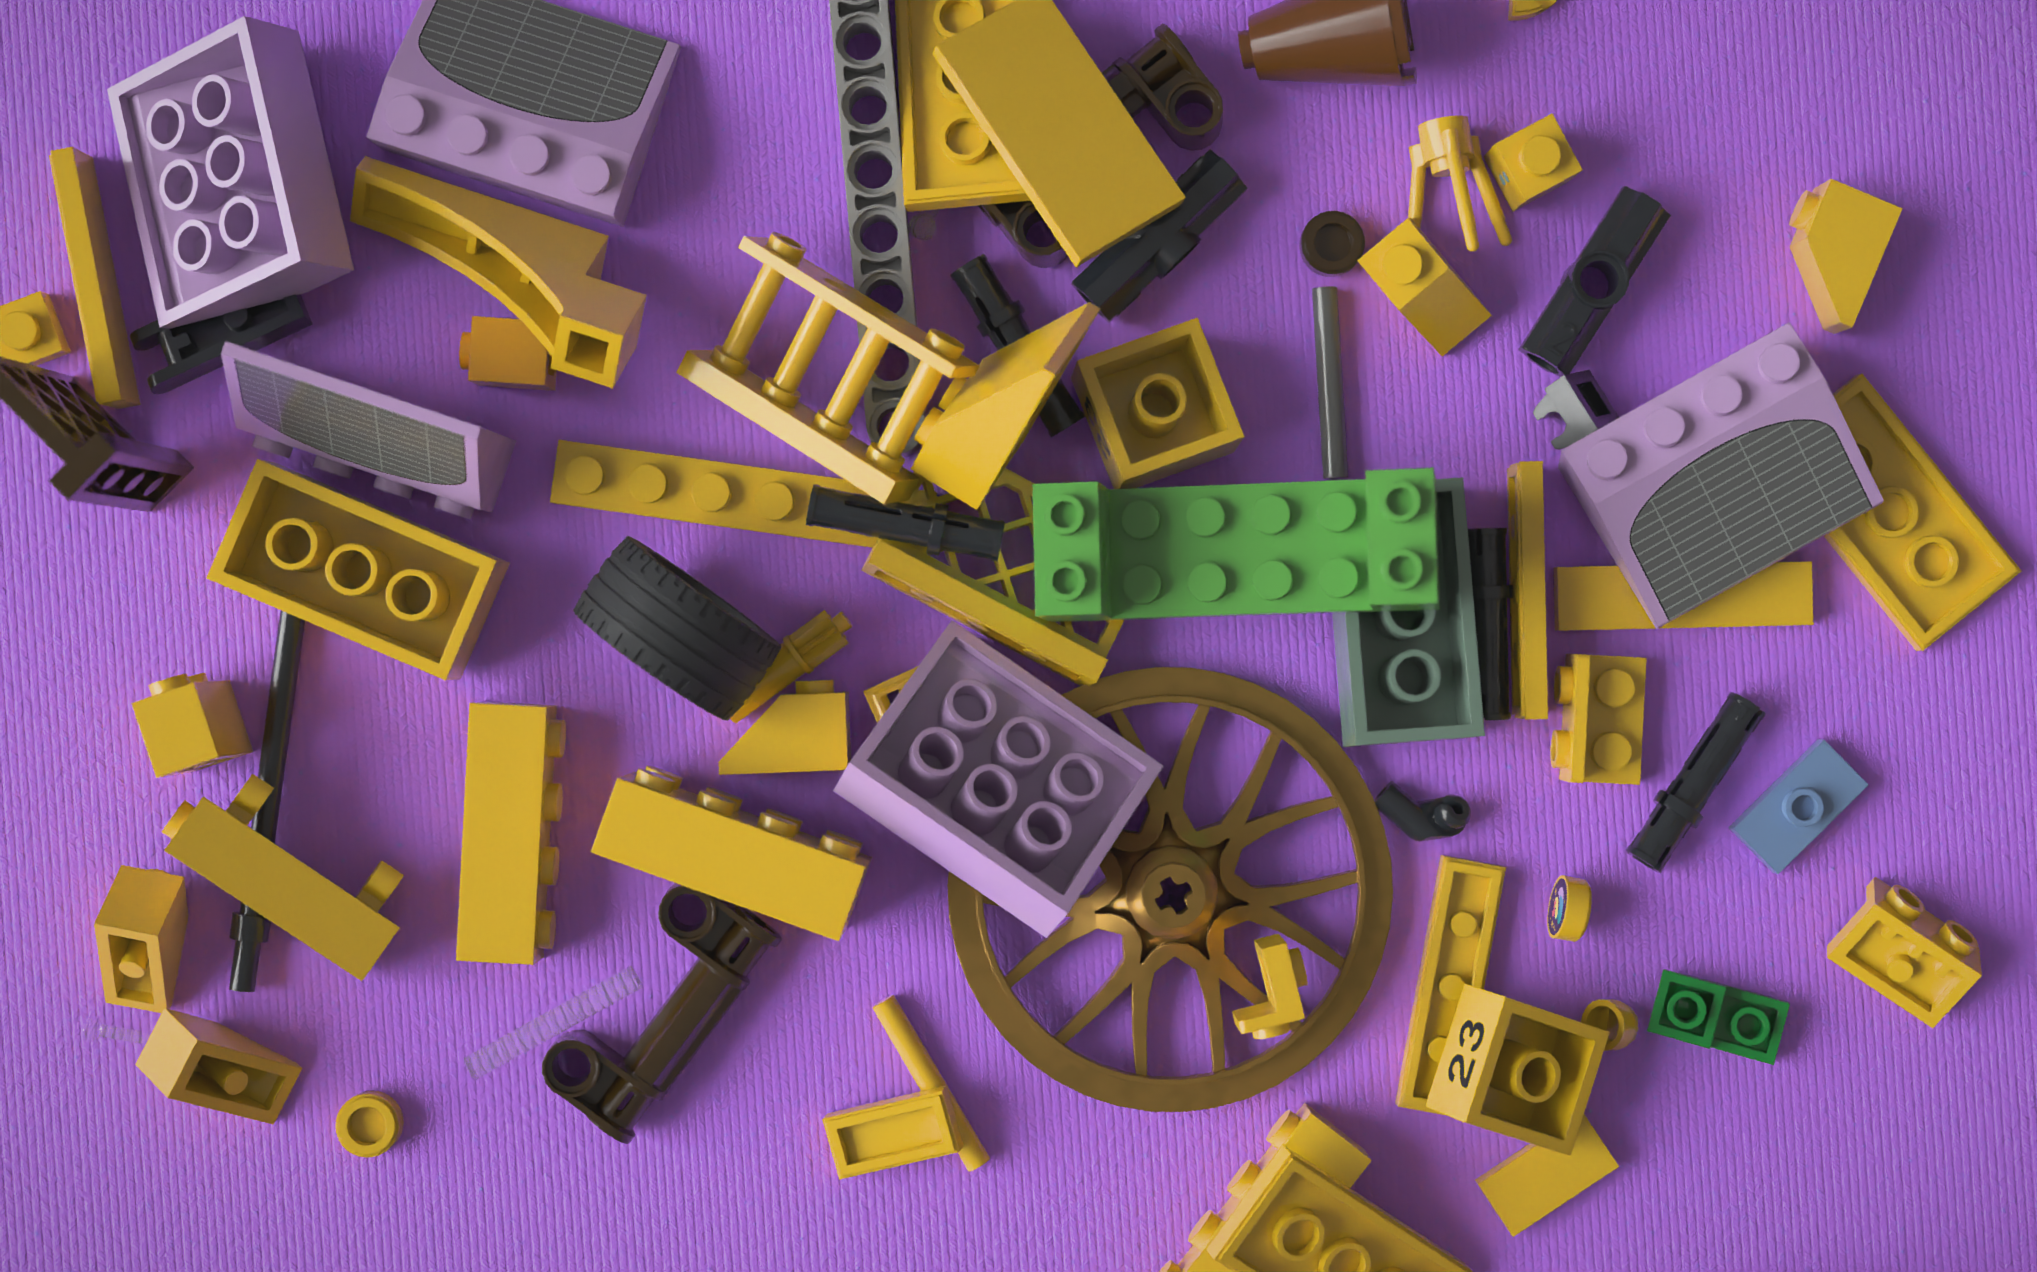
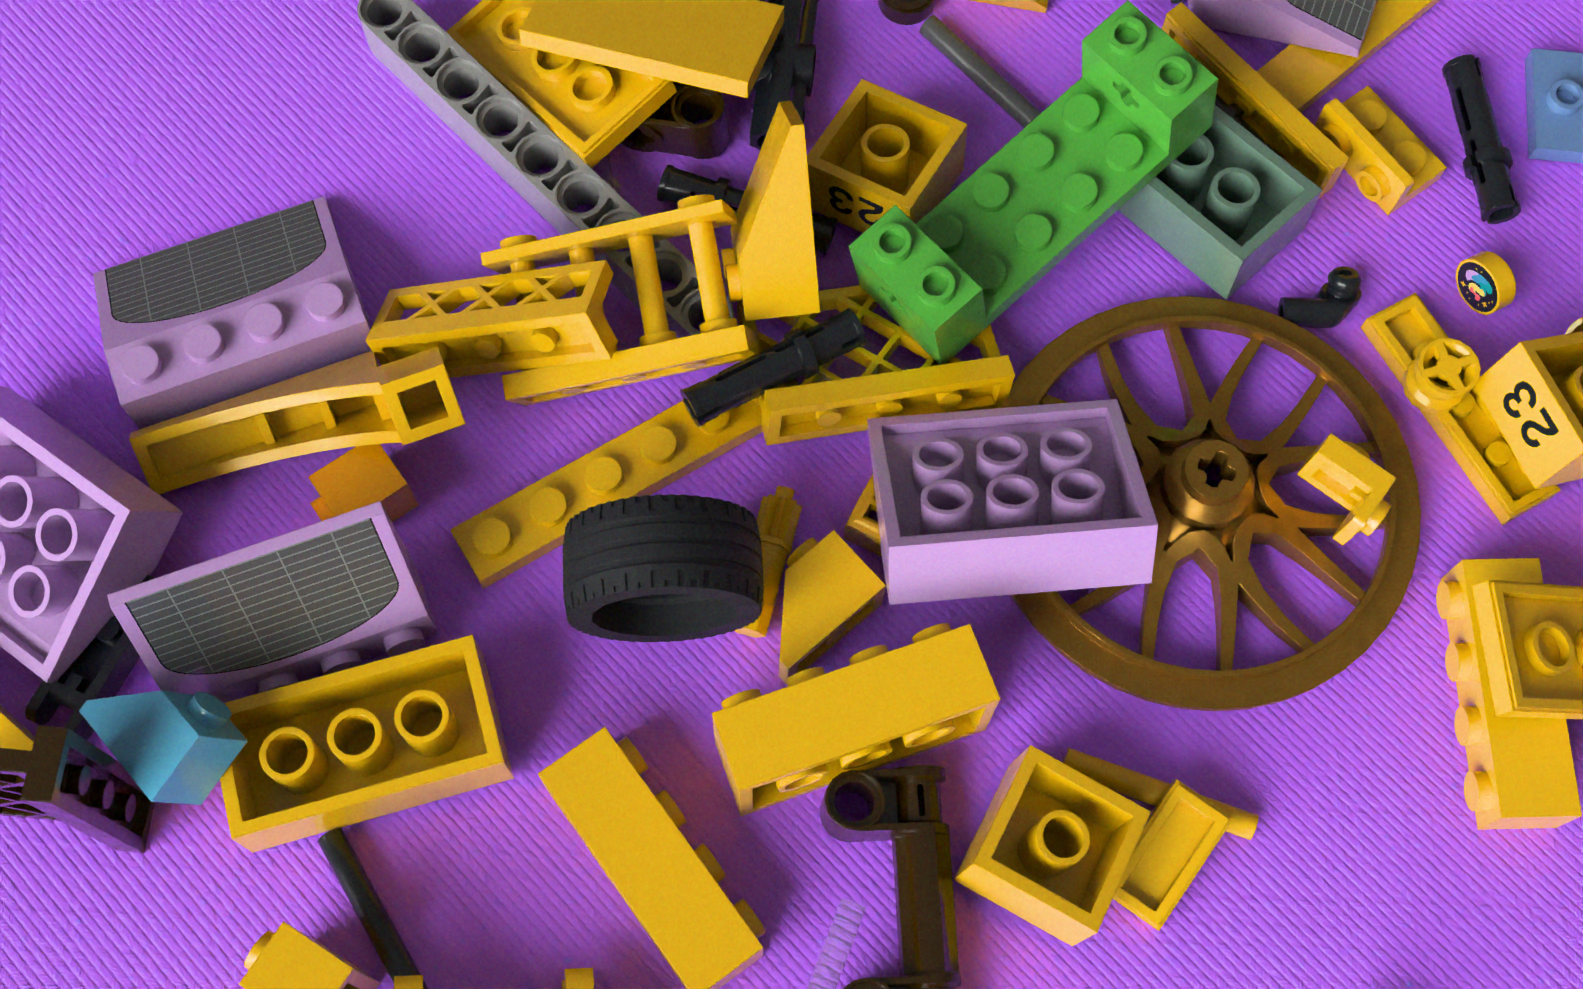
camera: 40 degrees left, 20 degrees down
(207, 465) = (168, 741): none -> medium azure slope
(702, 319) = (496, 336): none -> yellow fence
(805, 1063) = (1053, 846): none -> yellow brick
(1456, 962) = (1449, 361): none -> yellow wheel

